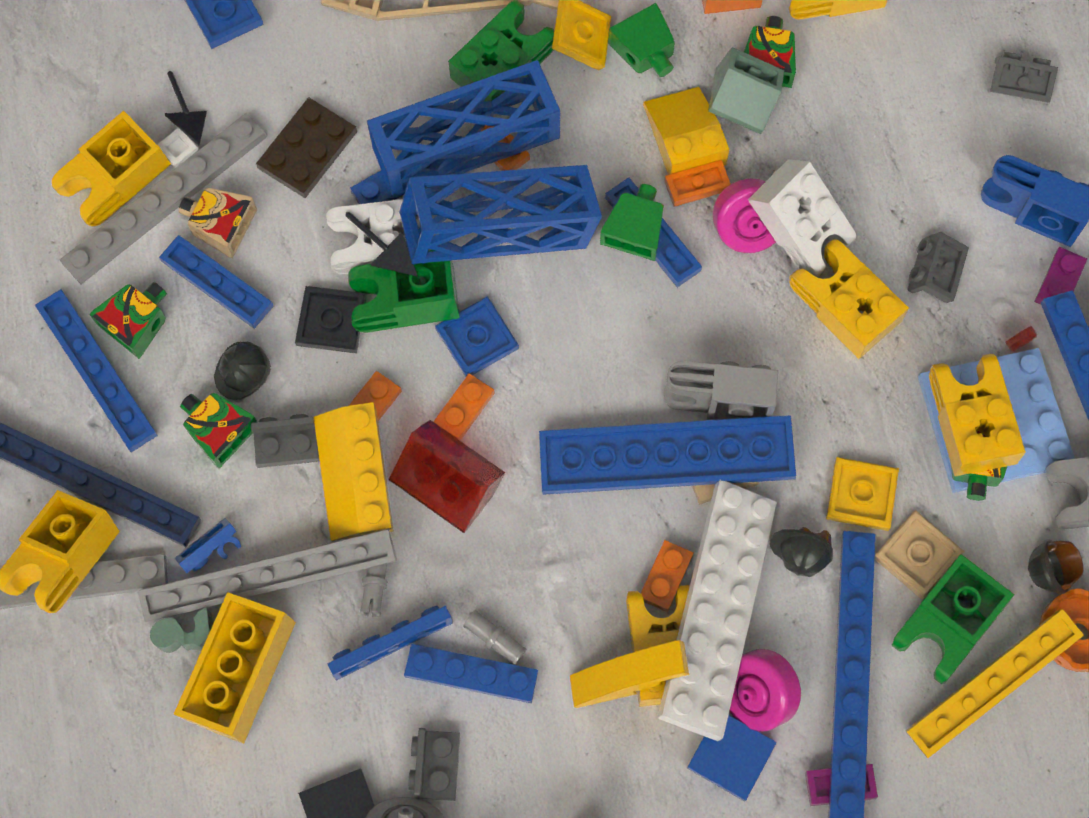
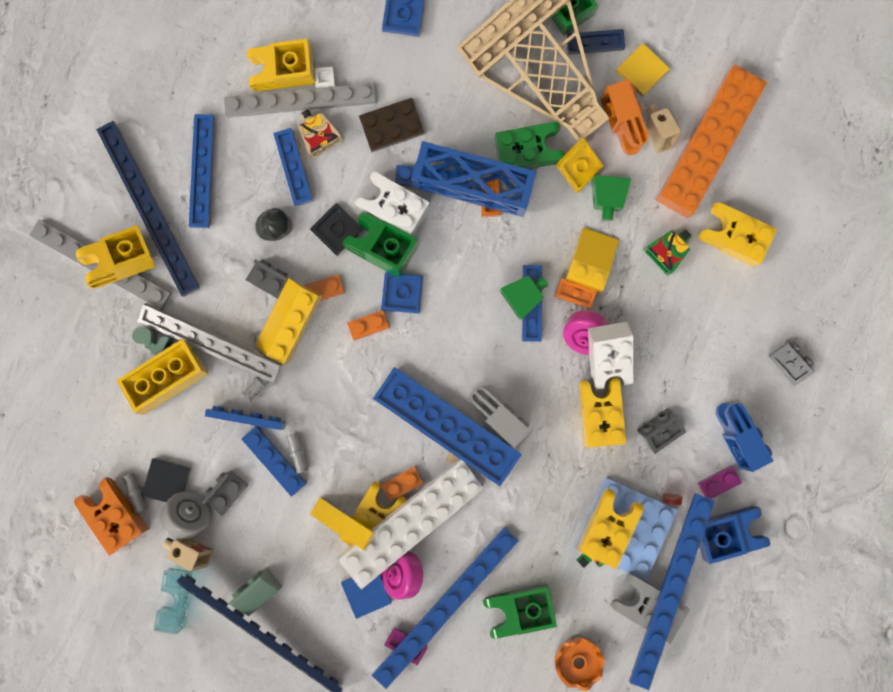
camera: 35 degrees right, 15 degrees up
(132, 317) = (238, 156): torso -> none
(188, 122) = (340, 66): black piece -> none
(197, 553) = (189, 304): blue plate -> none
(217, 426) = (239, 246): torso -> none
(395, 255) = (387, 223): black piece -> none
(446, 475) = (333, 354): clear red slope -> none
(576, 214) = (472, 234): blue piece -> none
(745, 90) = (638, 263): sand green slope -> none
(803, 550) = (474, 526): pearl dark grey piece -> none
(862, 494) = (529, 515): yellow tile -> none
(918, 554) = (532, 565): tan tile -> none
(994, 683) = (515, 657): yellow plate -> none
(1055, 566) = (592, 624): piece -> none

